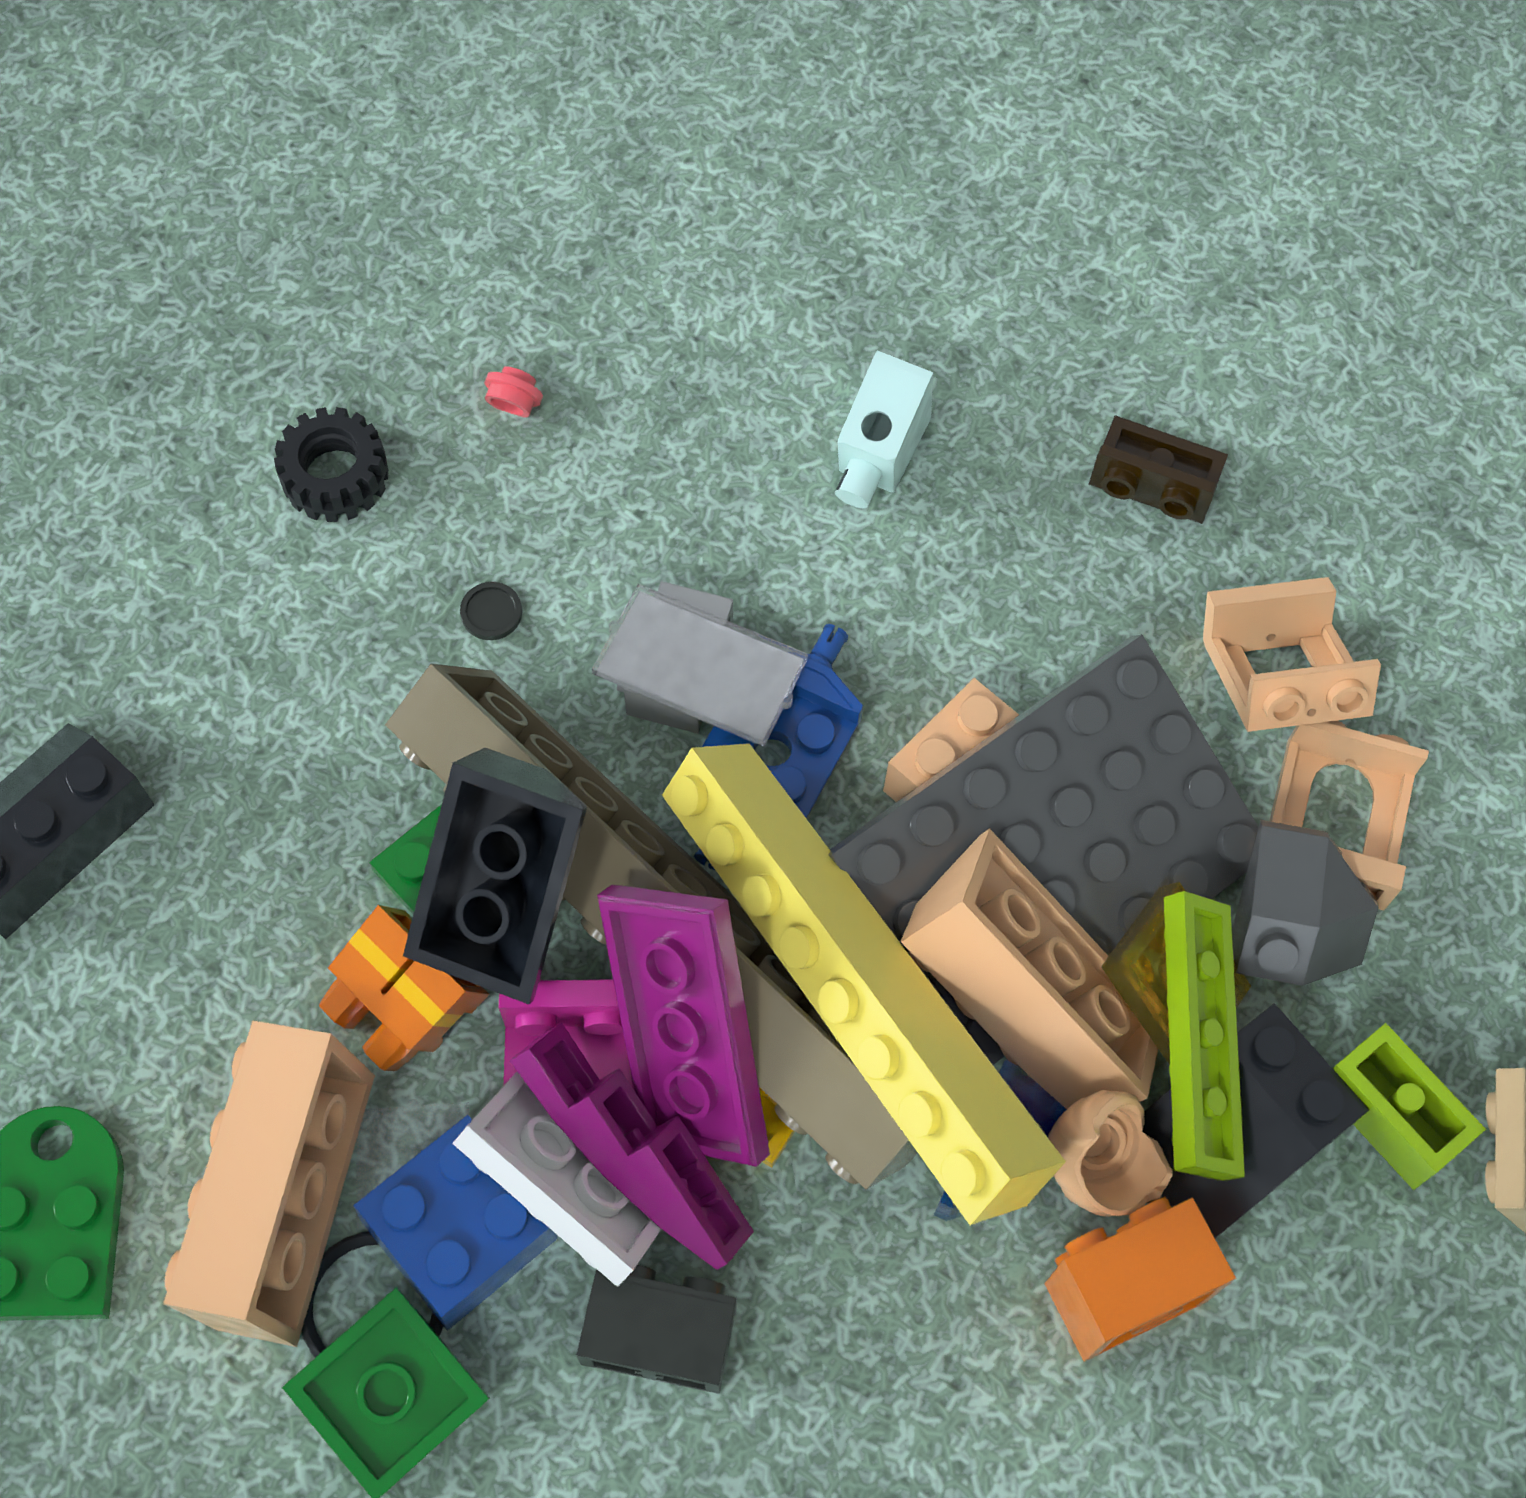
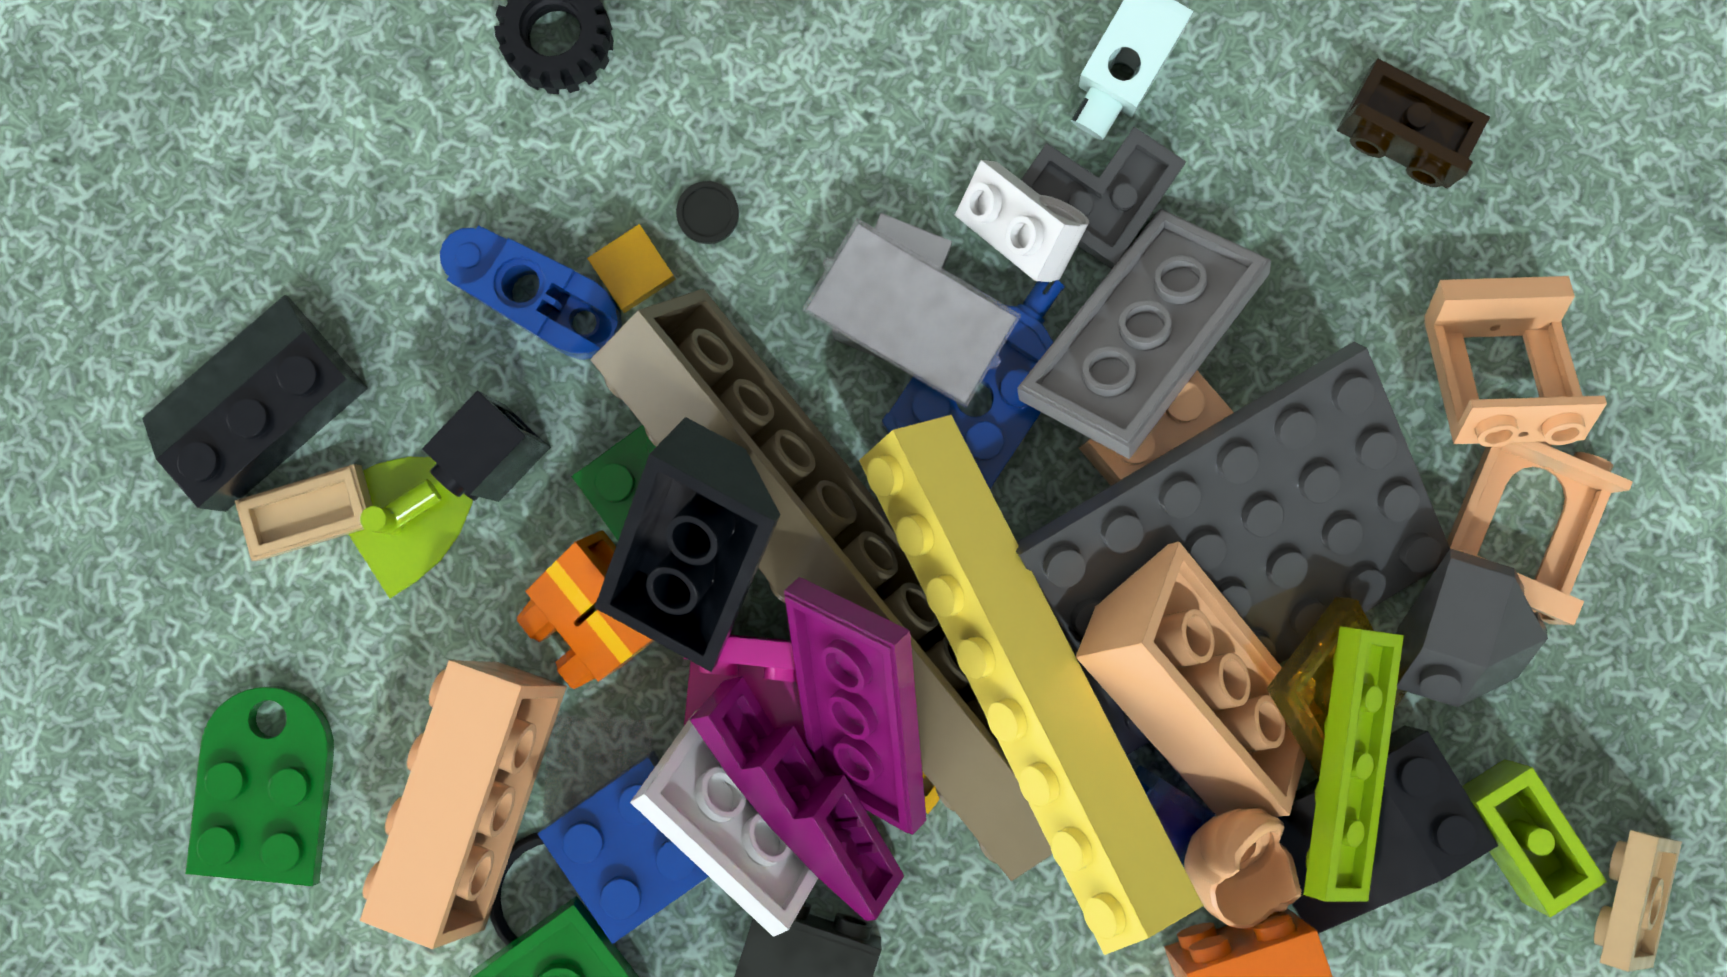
camera: 15 degrees right, 20 degrees up
(91, 928) = (304, 512): none -> tan tile
(195, 924) = (409, 522): none -> lime shield
(278, 671) = (490, 266): none -> blue piece
(281, 831) = (483, 449): none -> black brick
(410, 657) = (631, 268): none -> yellow tile
(798, 579) = (1024, 226): none -> white plate
(874, 570) = (1115, 201): none -> dark grey plate
(929, 662) = (1144, 332): none -> light grey tile

